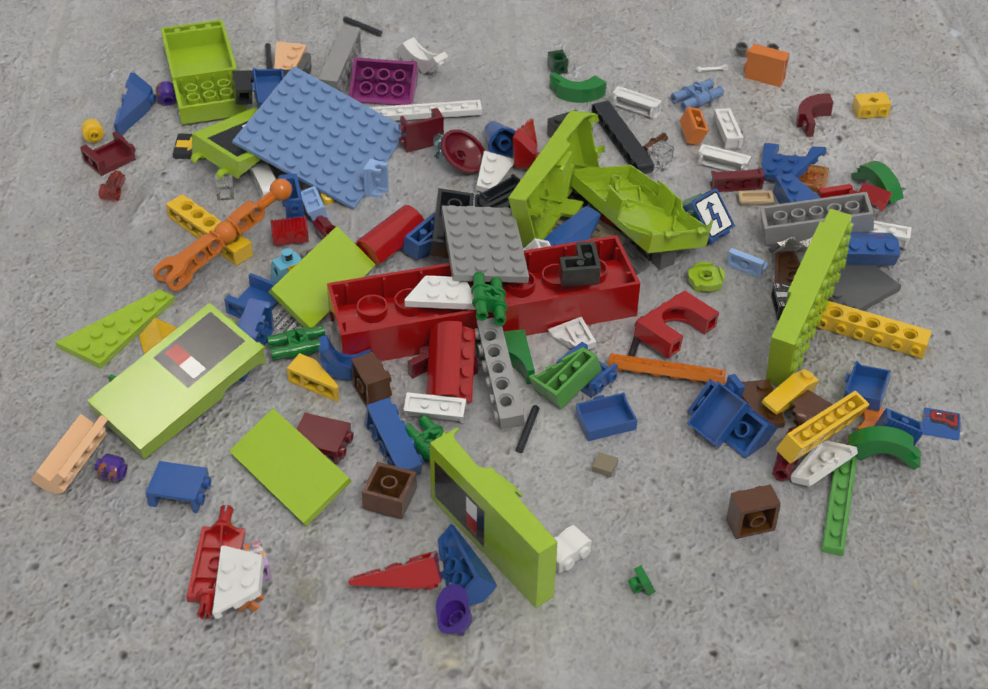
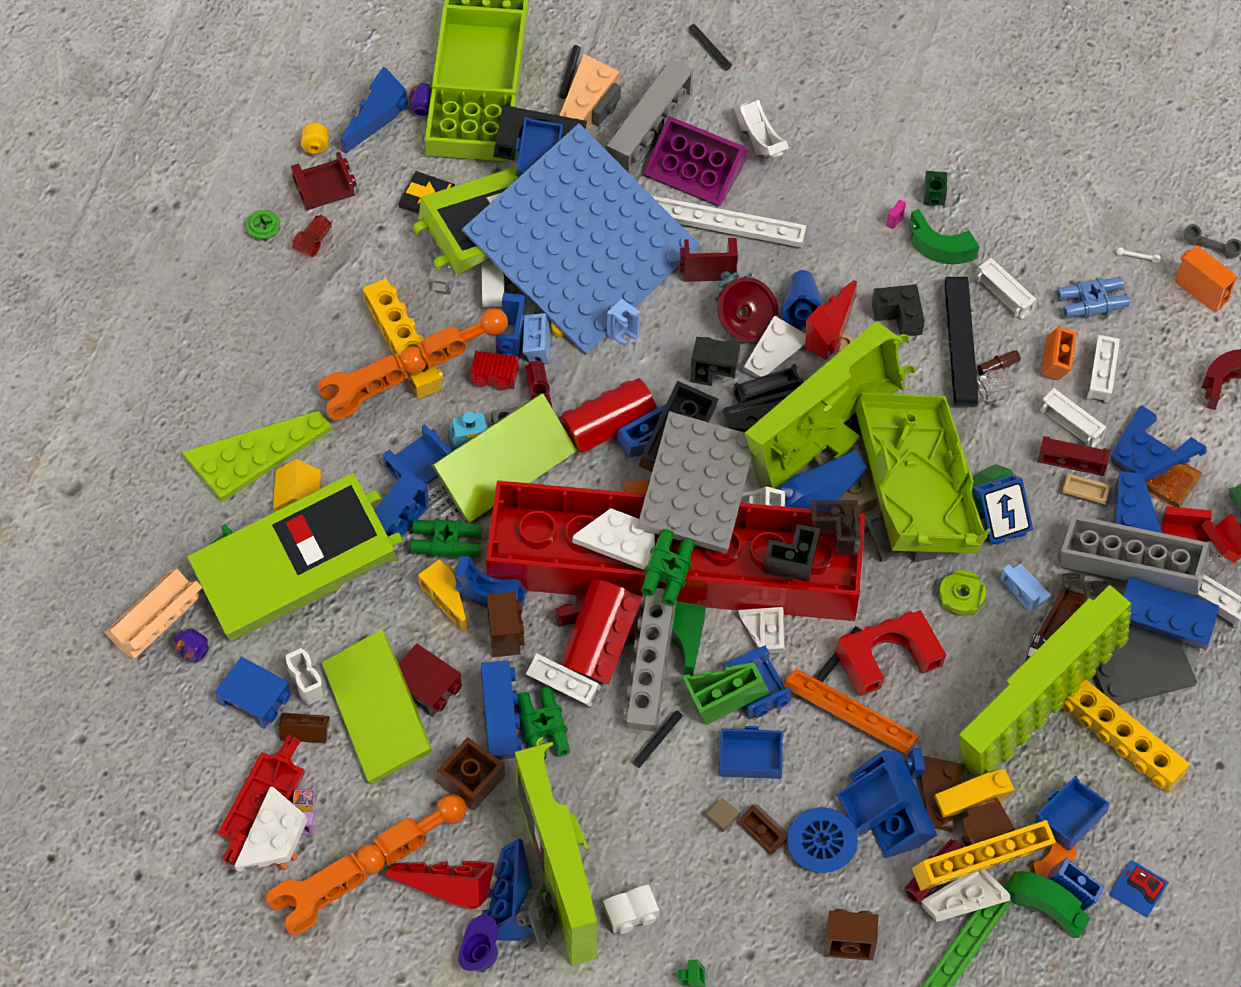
camera: 20 degrees right, 15 degrees up
(76, 187) = (269, 218): none -> bright green gear
(219, 461) = (304, 676): none -> white brick
(239, 499) = (304, 727): none -> reddish brown slope
(315, 592) = (350, 871): none -> orange piece
(455, 178) = (713, 358): none -> pearl dark grey brick
(490, 566) = (539, 913): none -> dark grey hinge
(538, 81) = (896, 214): none -> dark pink tile
(607, 239) = (840, 519): none -> clear smoke brick
(641, 465) = (763, 828): none -> reddish brown slope
(707, 456) = (821, 816): none -> blue piece

